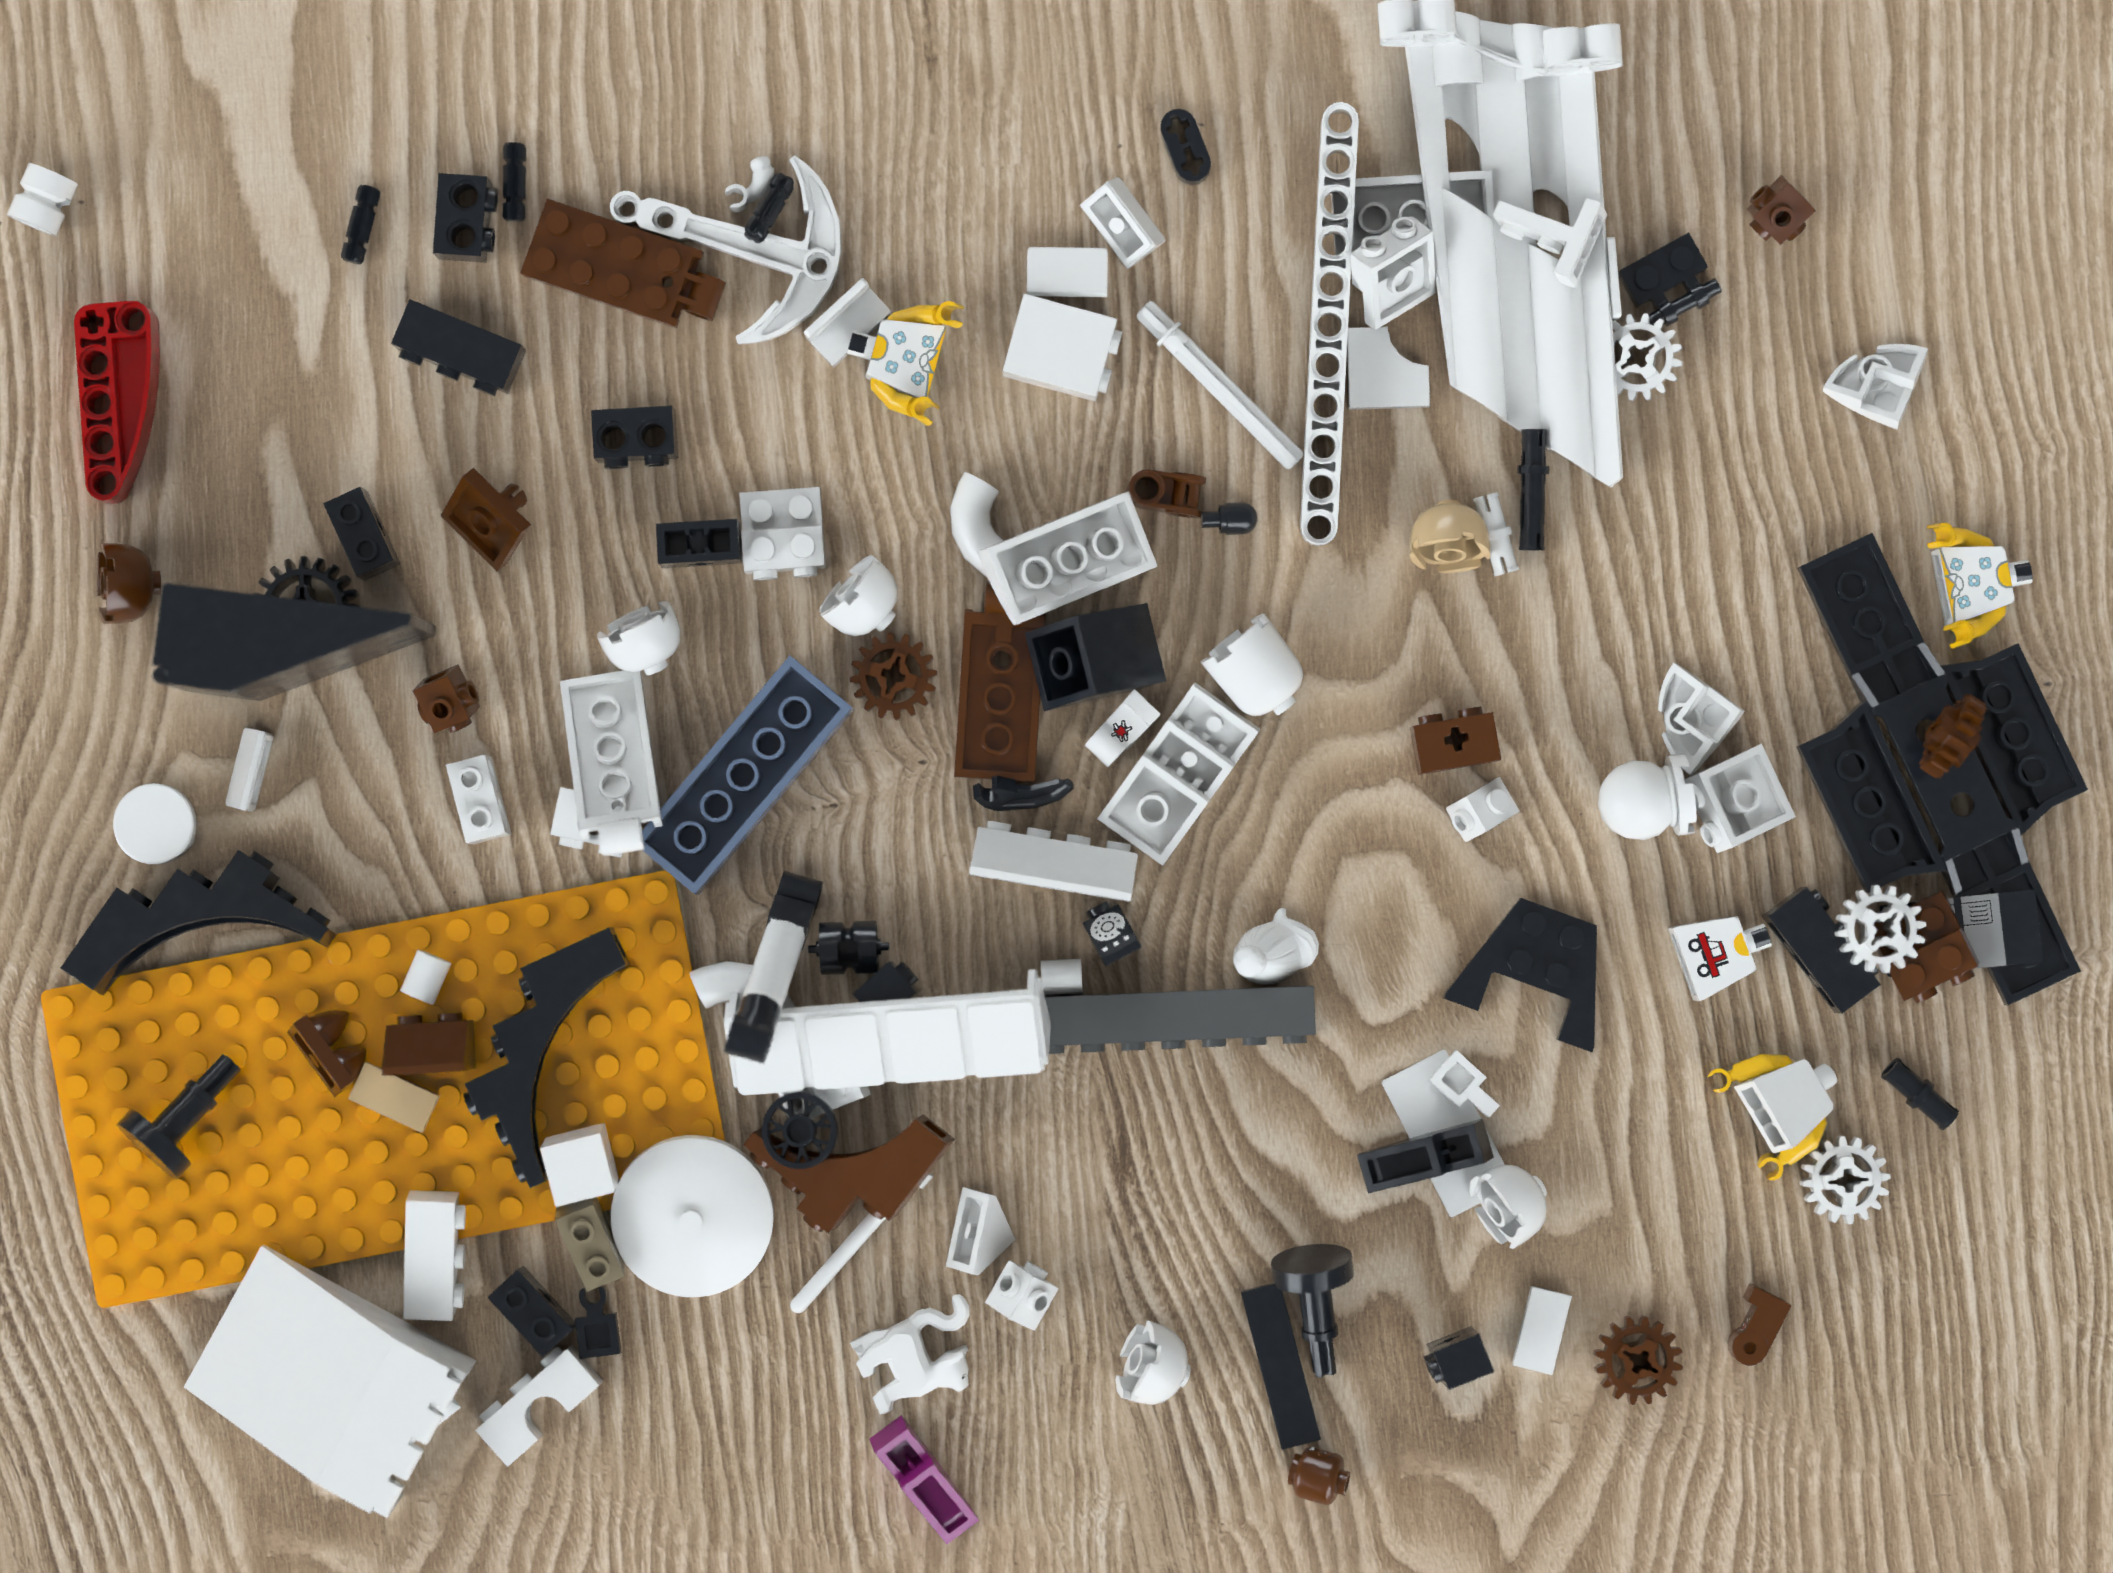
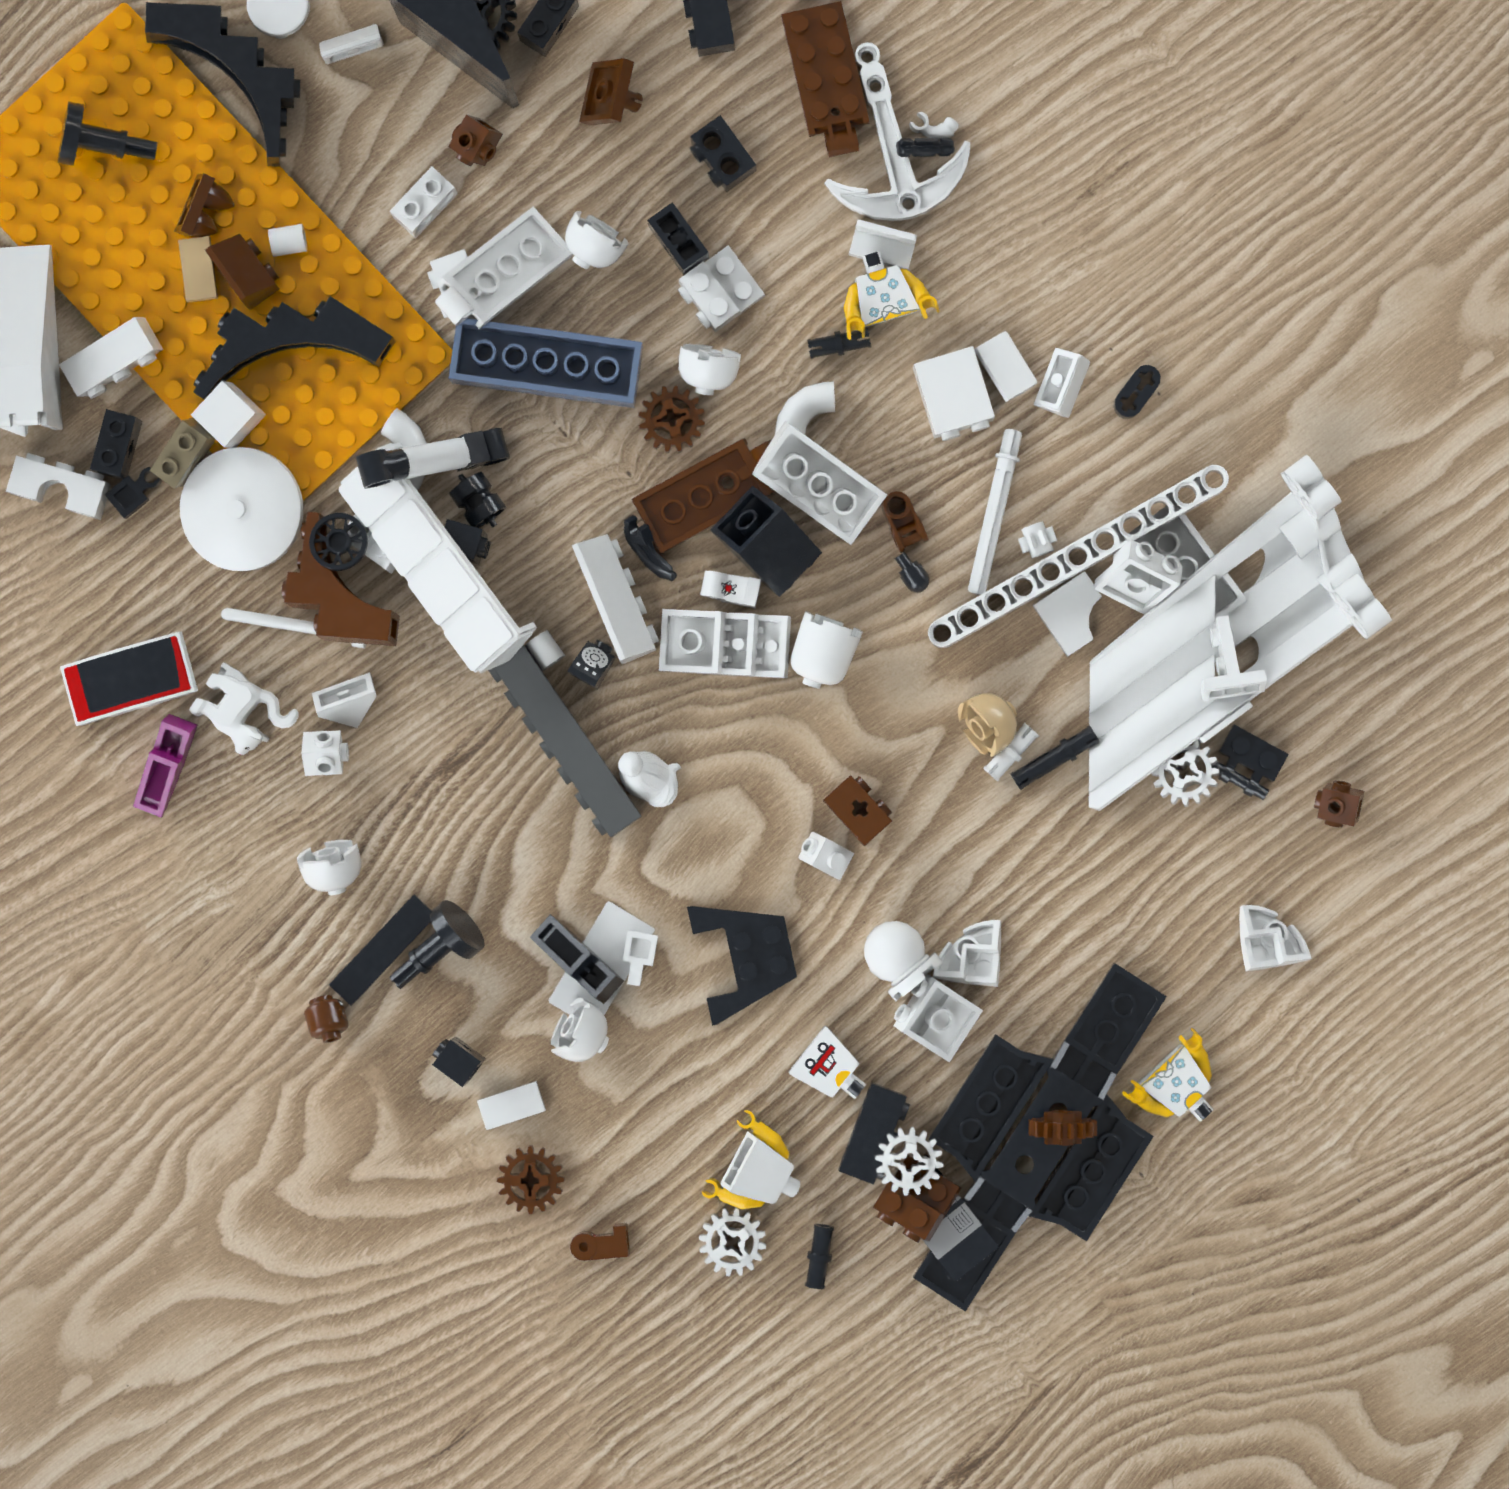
camera: 65 degrees right, 0 degrees up
(802, 1459) = (129, 678): none -> black slope
(925, 441) = (838, 343): none -> black pin
(1281, 357) = (1037, 539): none -> white gear

